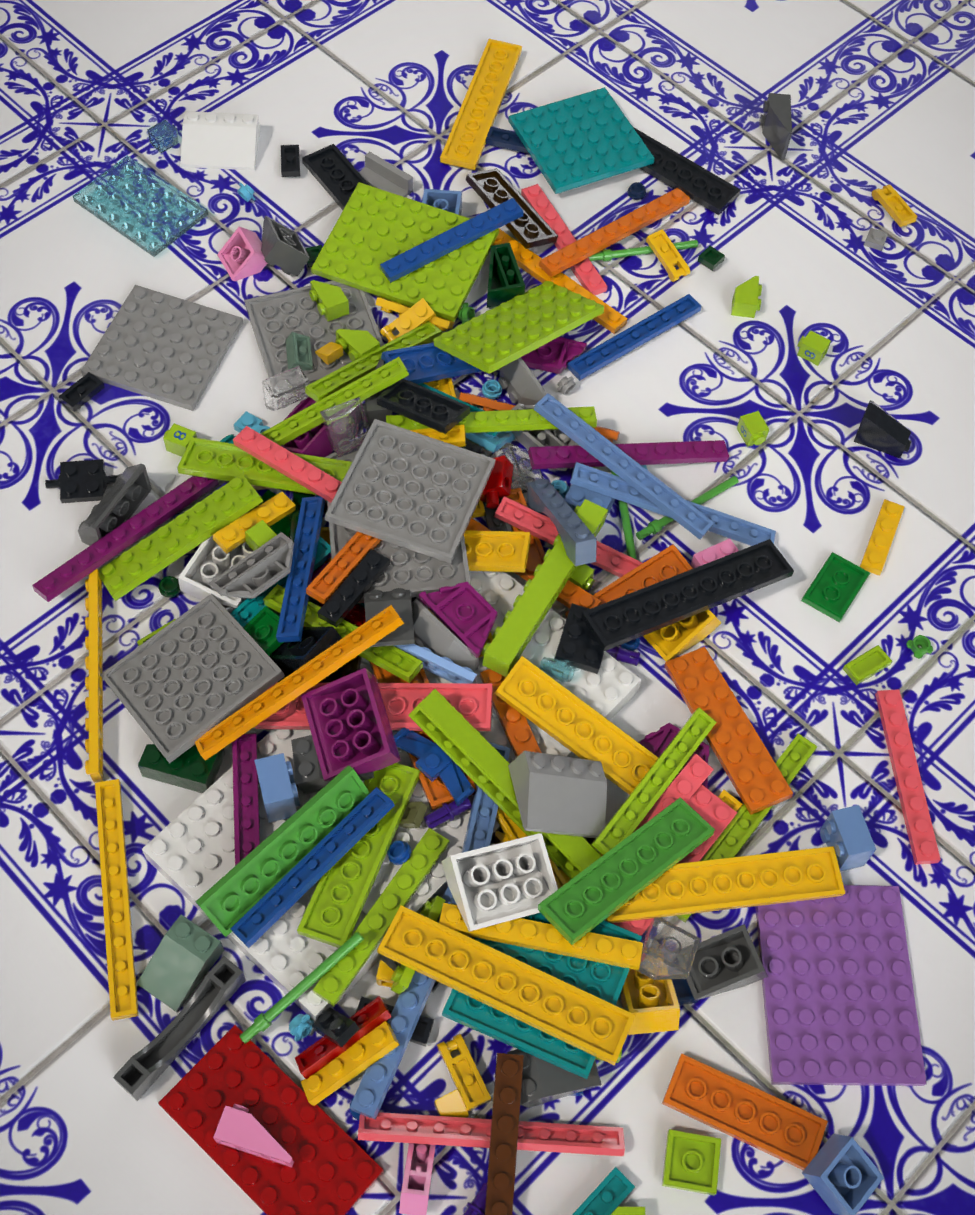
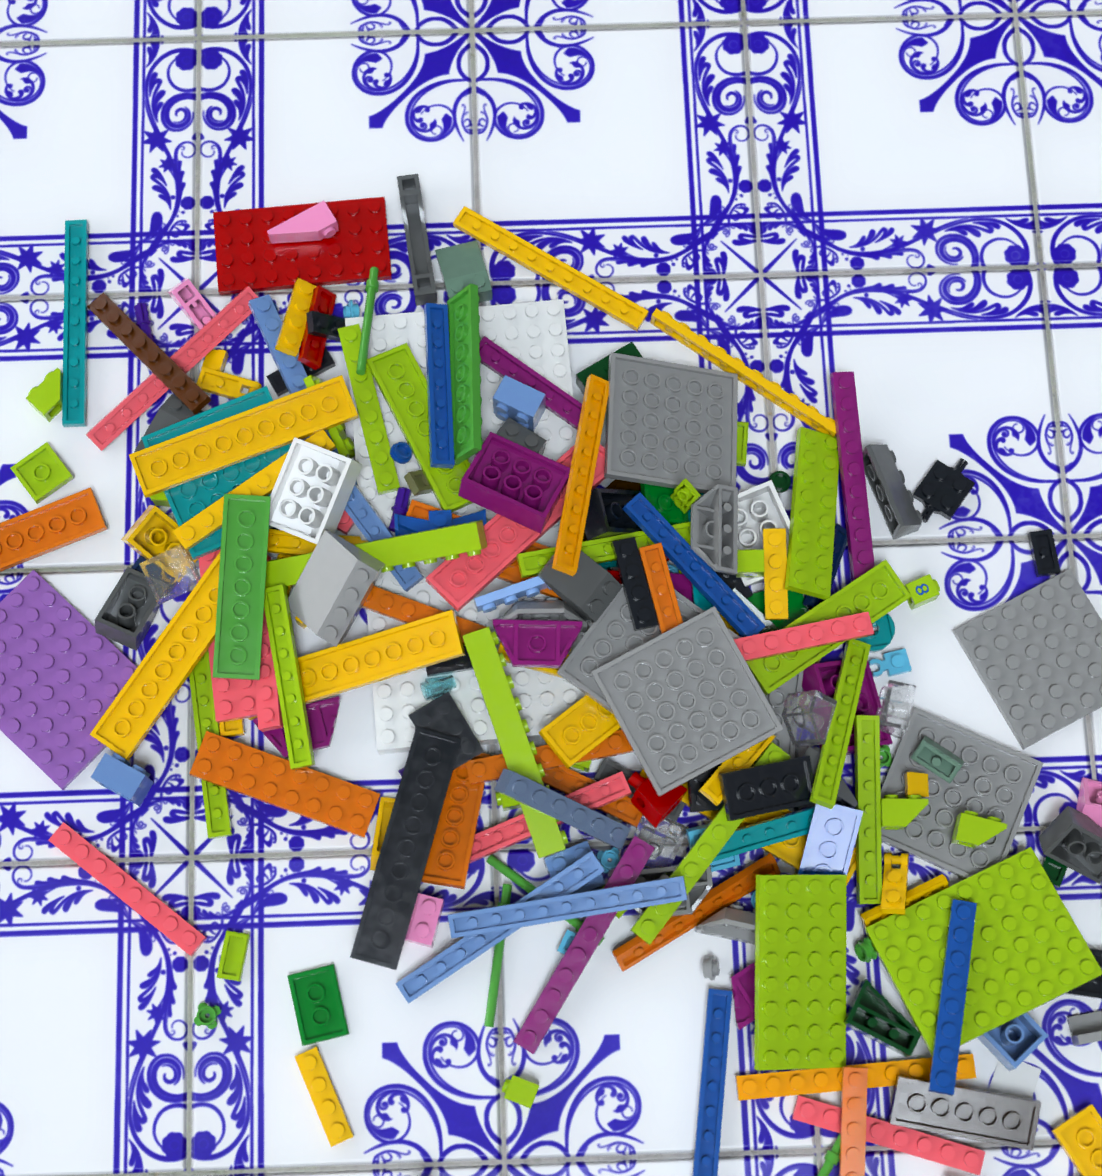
camera: 135 degrees right, 15 degrees up
(247, 613) = (685, 496): none -> lime slope

